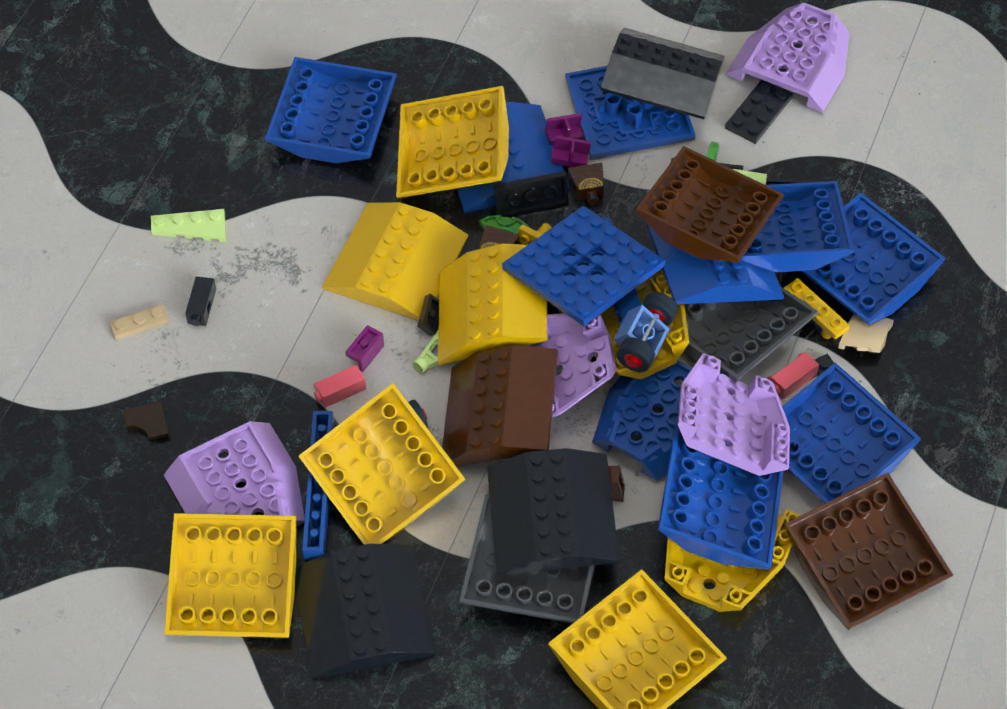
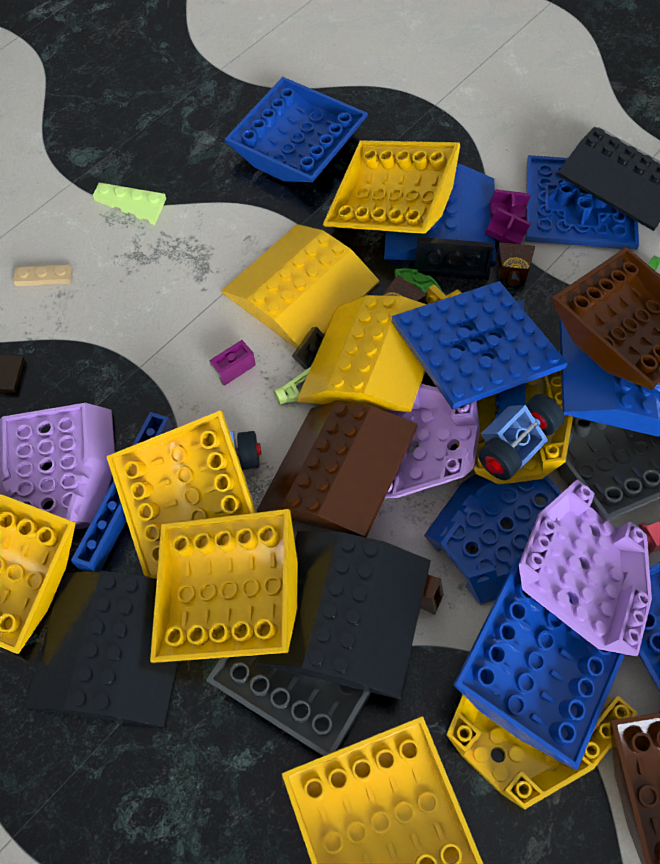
camera: 20 degrees right, 5 degrees up
(200, 301) = (103, 271): black brick -> none
(339, 386) = (192, 393): coral brick -> none
(446, 523) = (225, 587): none -> yellow slope

